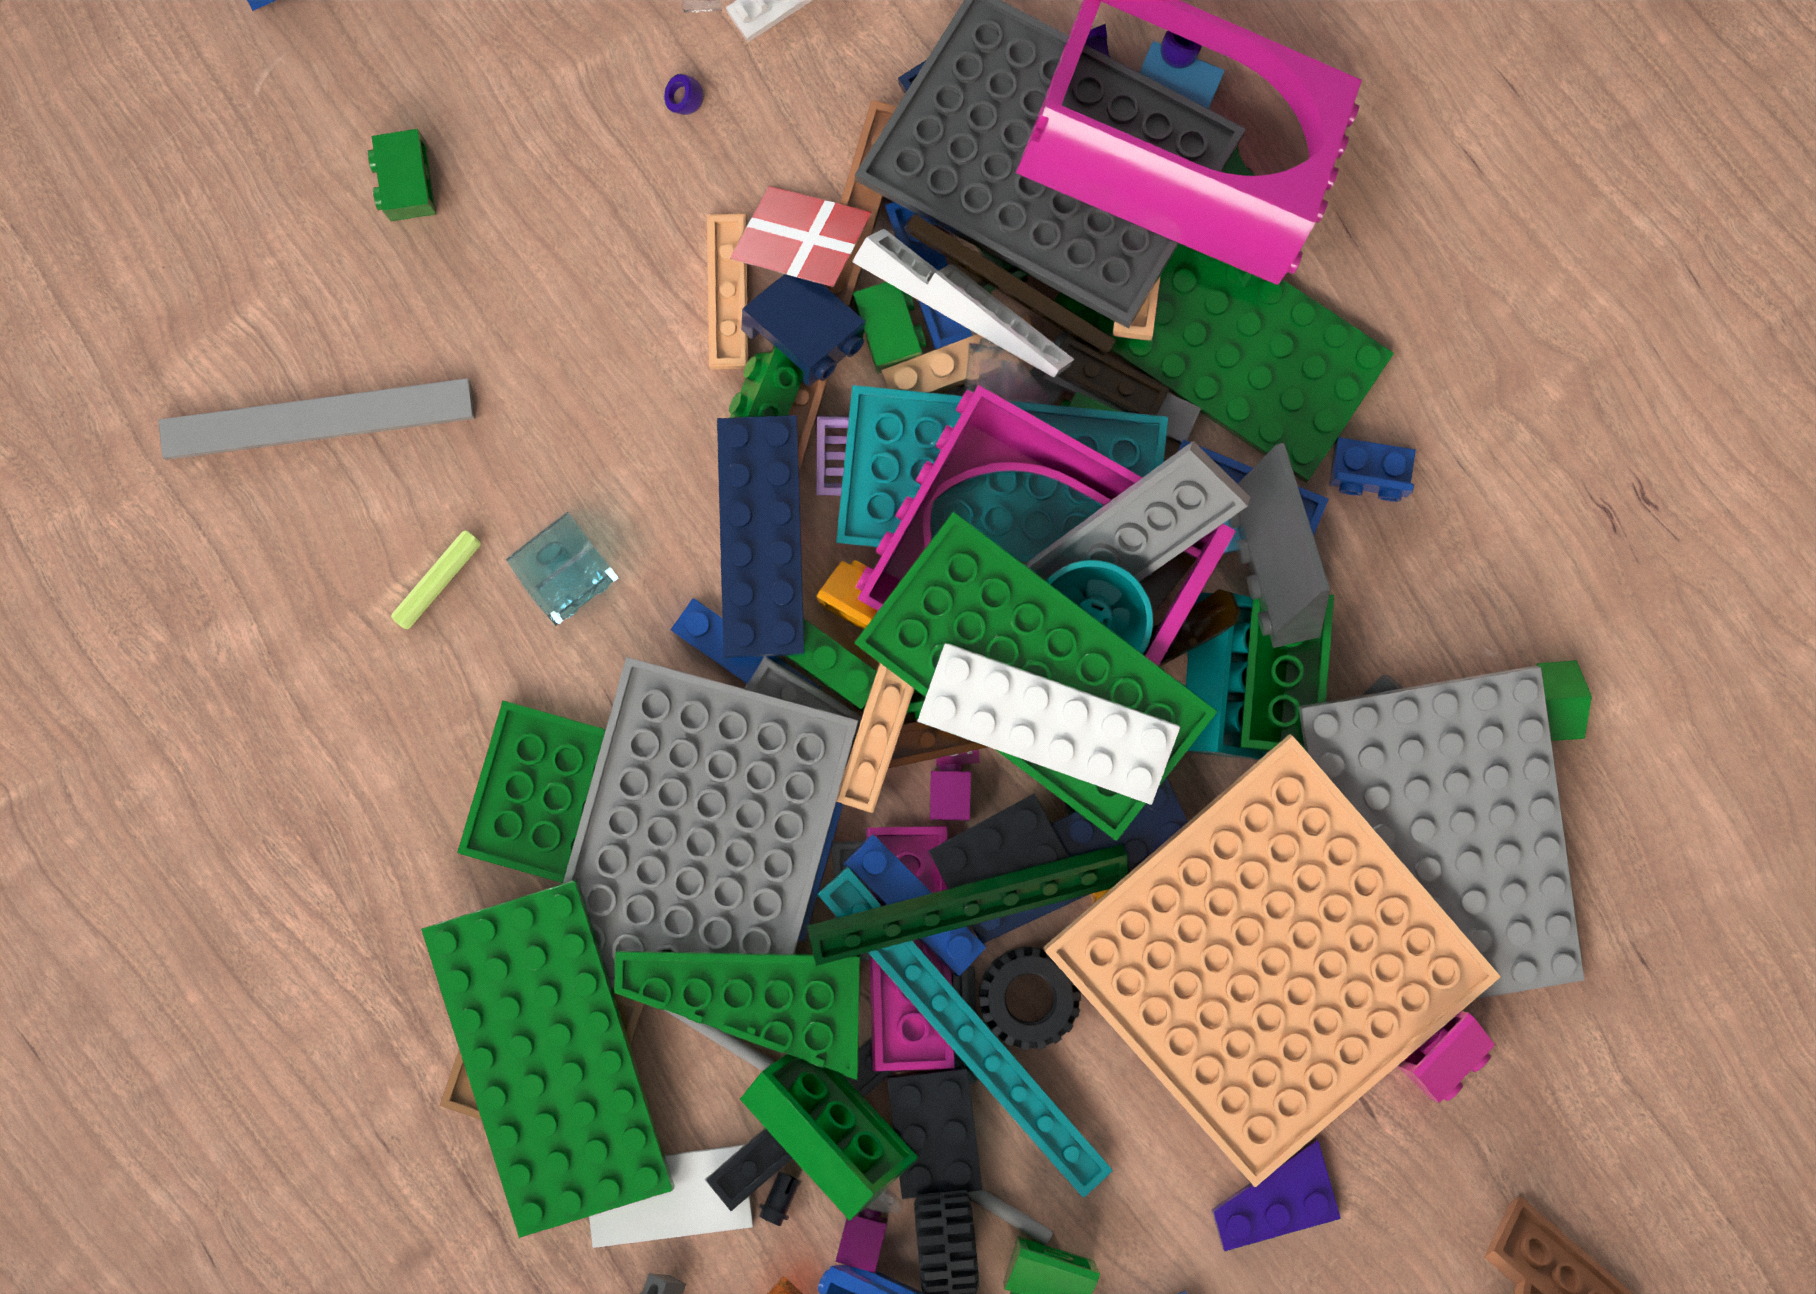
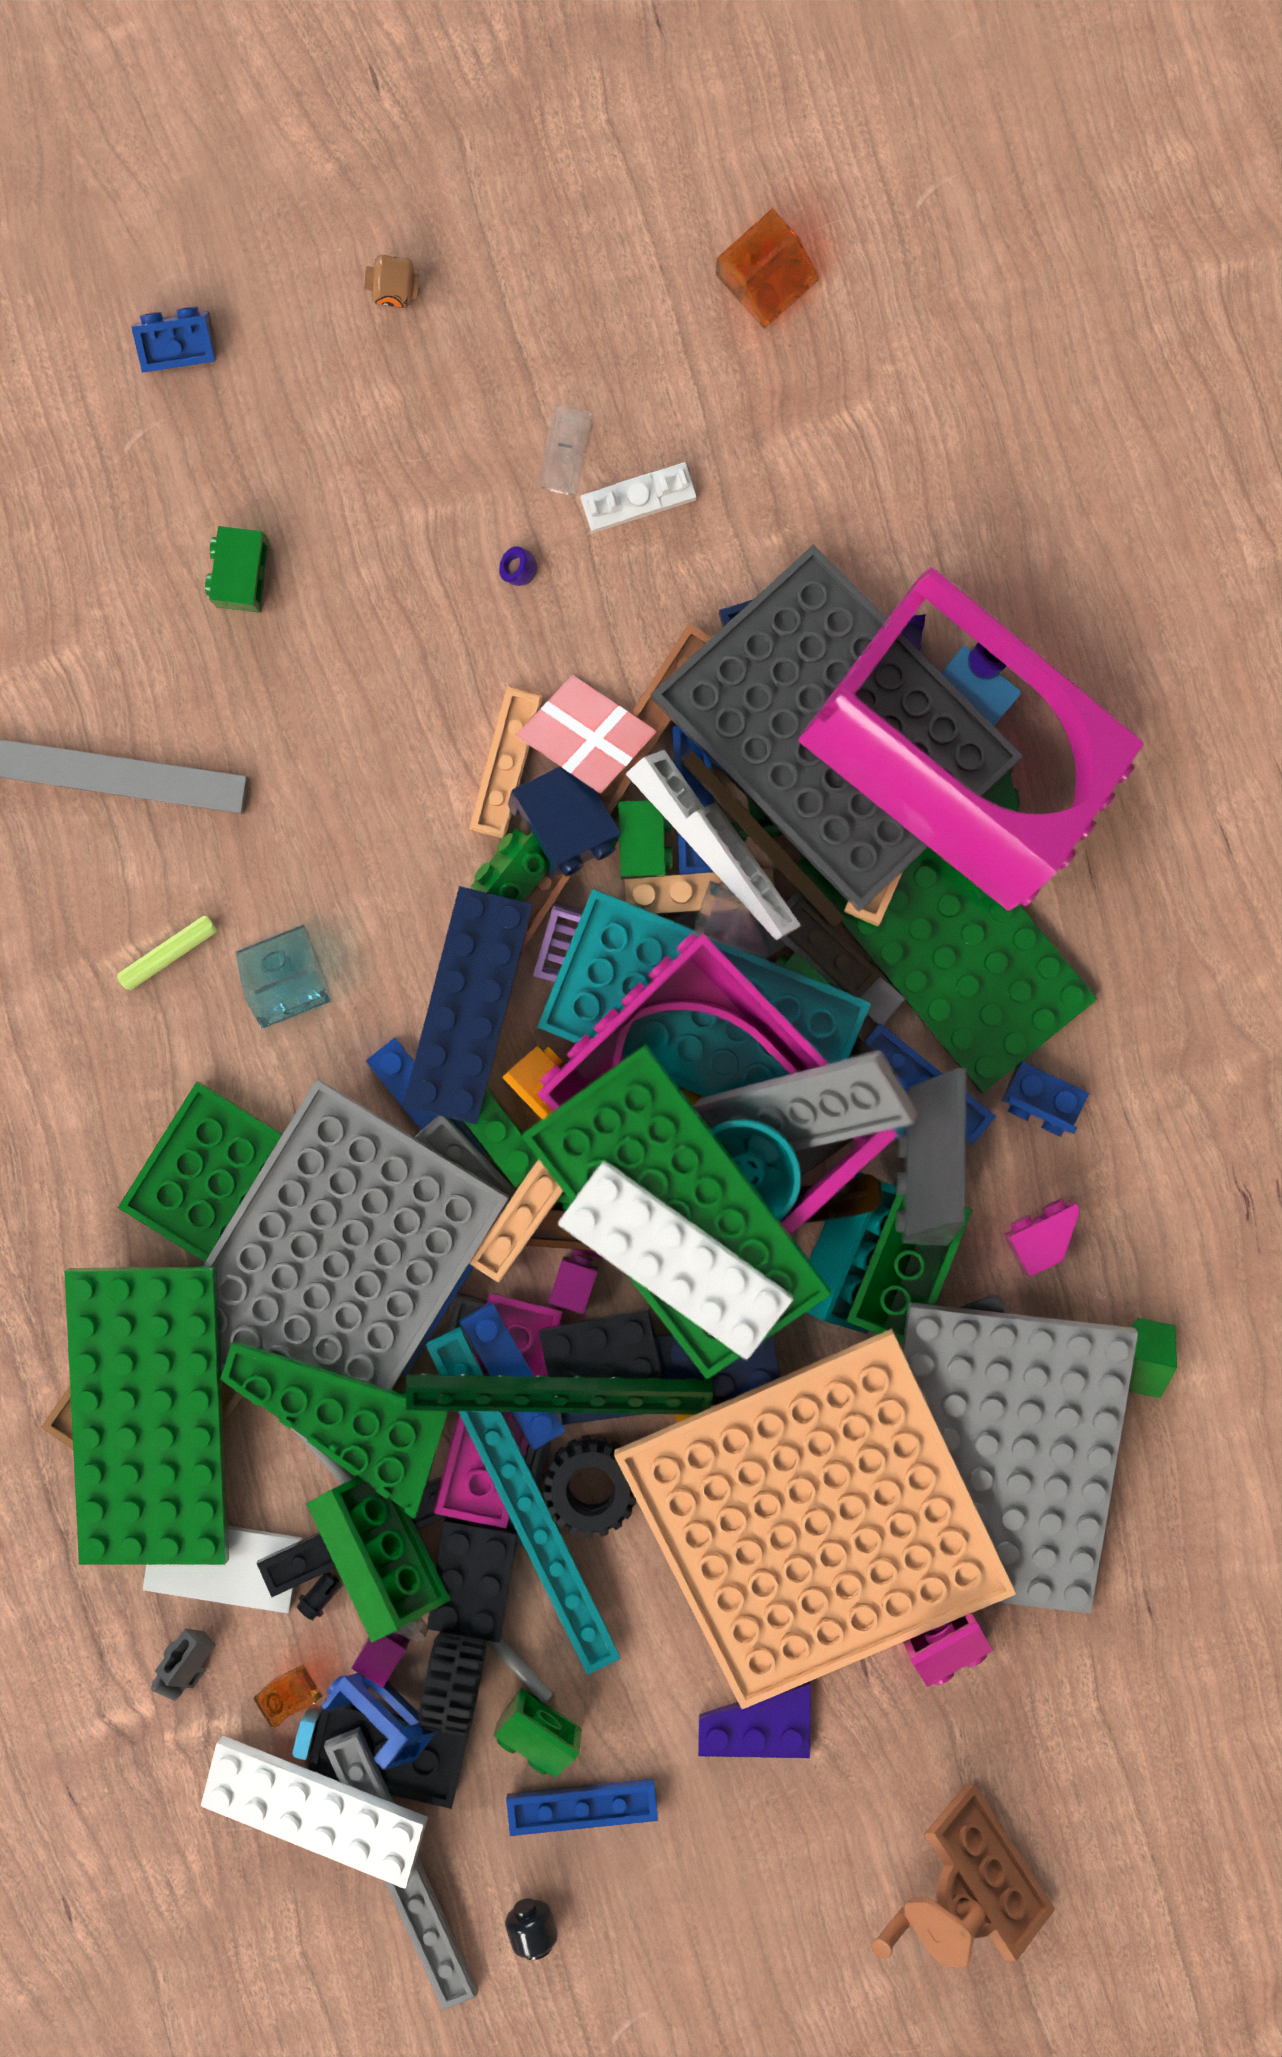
camera: 15 degrees right, 5 degrees up
(1416, 610) = (1045, 1239): none -> dark pink slope

